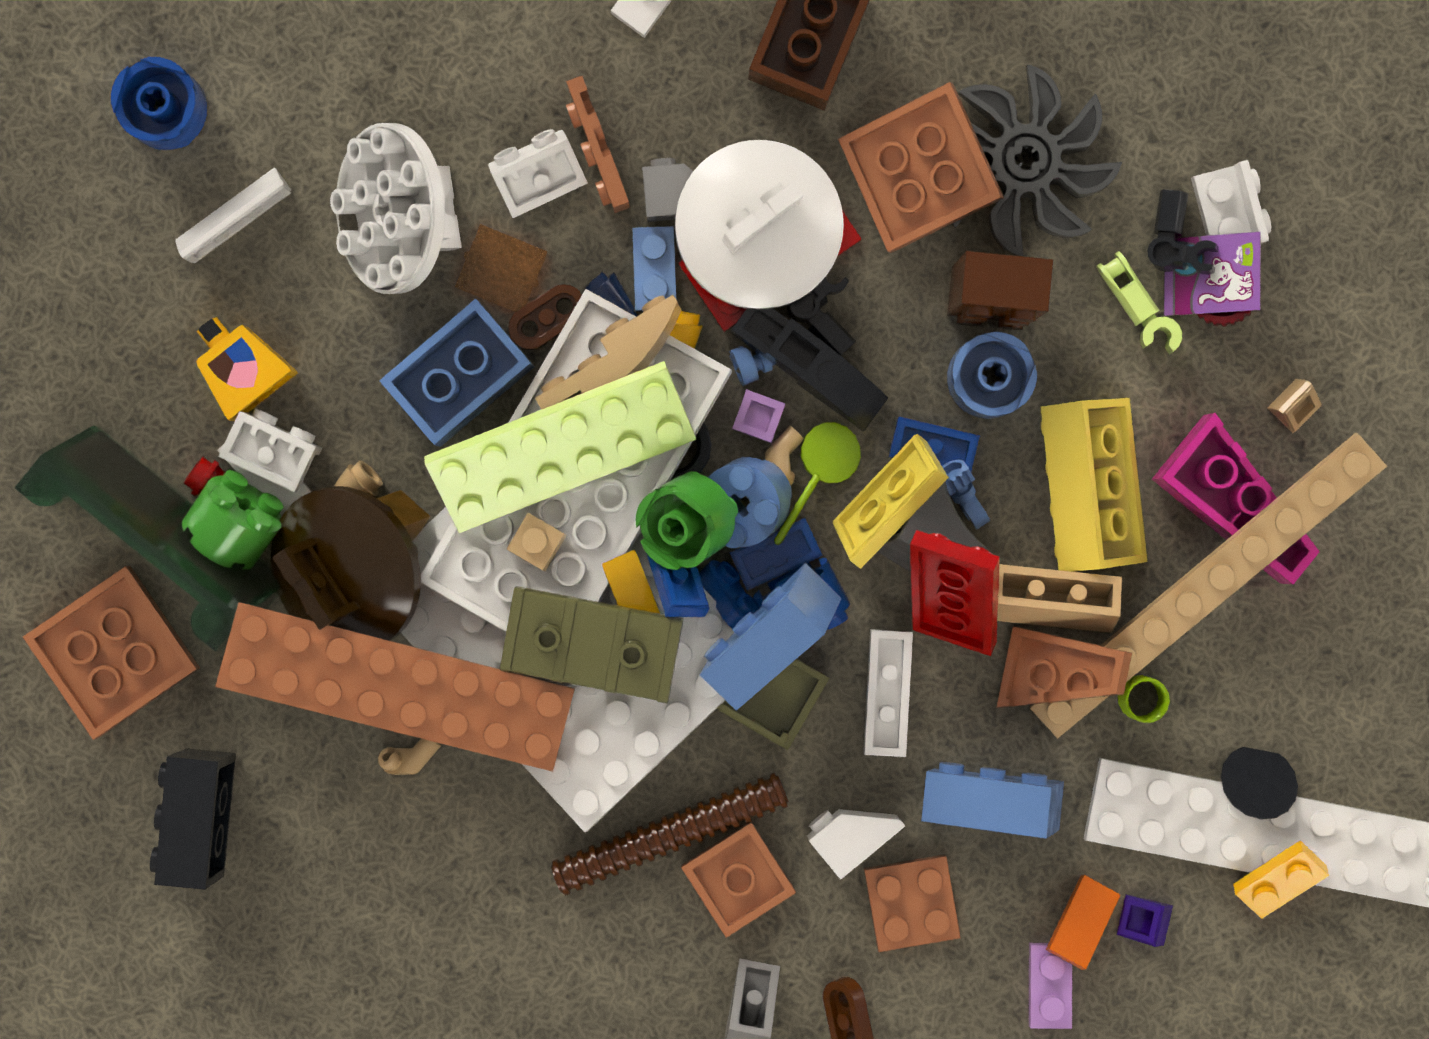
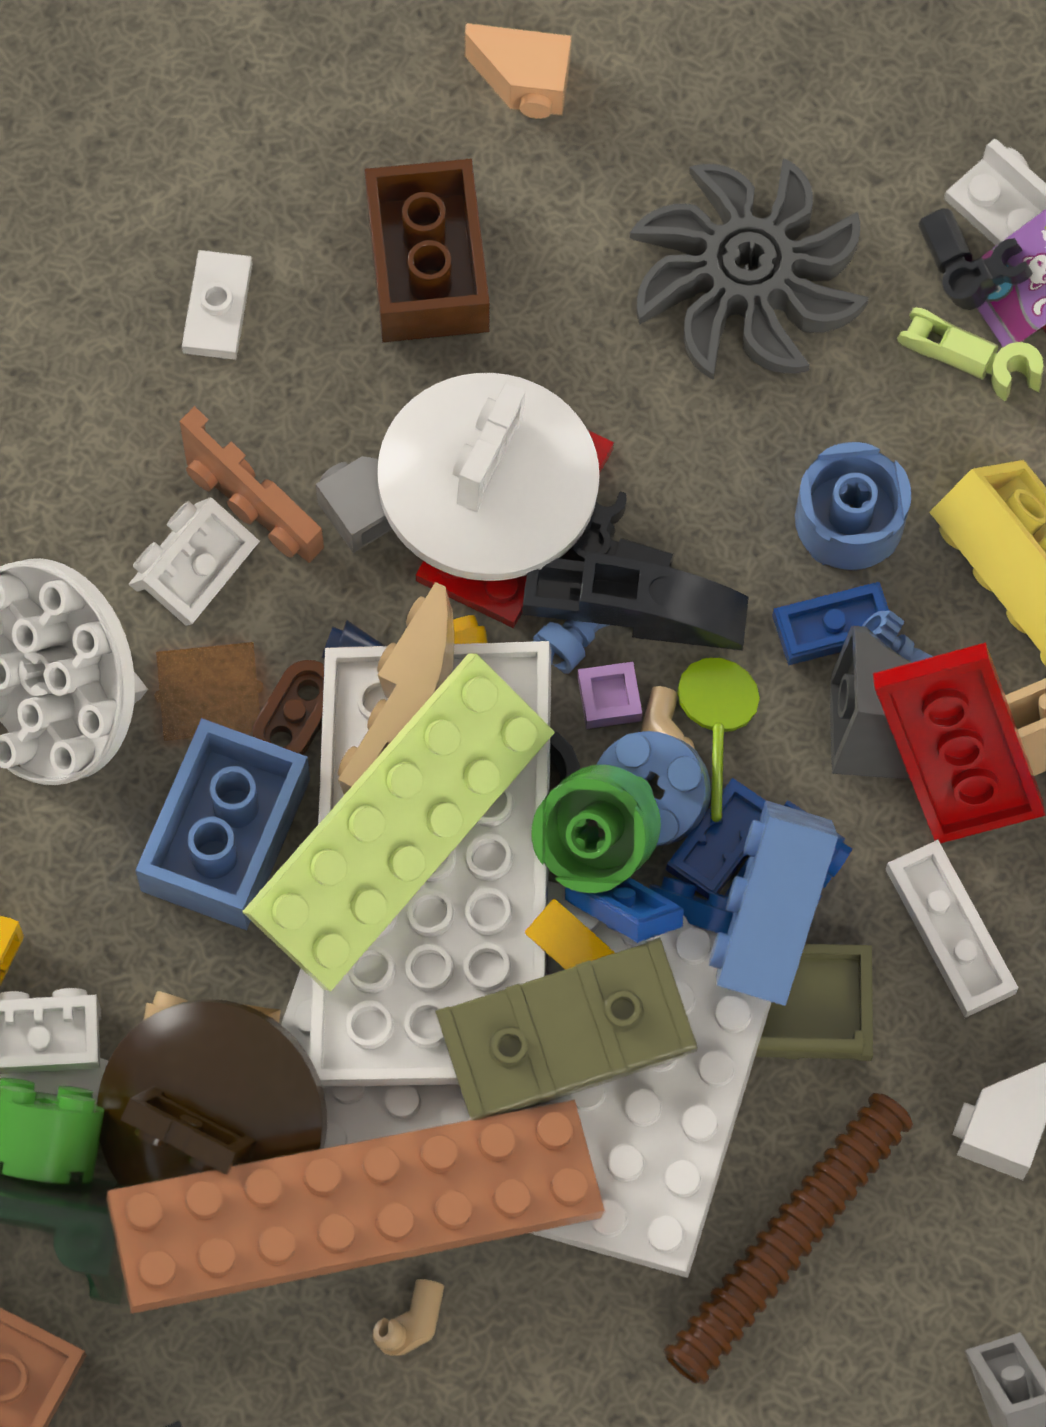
camera: 25 degrees left, 20 degrees down
(536, 542) = (430, 951): tan plate -> none
(653, 264) = (382, 588): light blue plate -> none
(738, 879) = (905, 1247): nougat plate -> none
(889, 500) = (819, 693): light yellow tile -> none
(920, 168) = (636, 328): nougat plate -> none
(999, 289) = (803, 397): reddish brown brick -> none

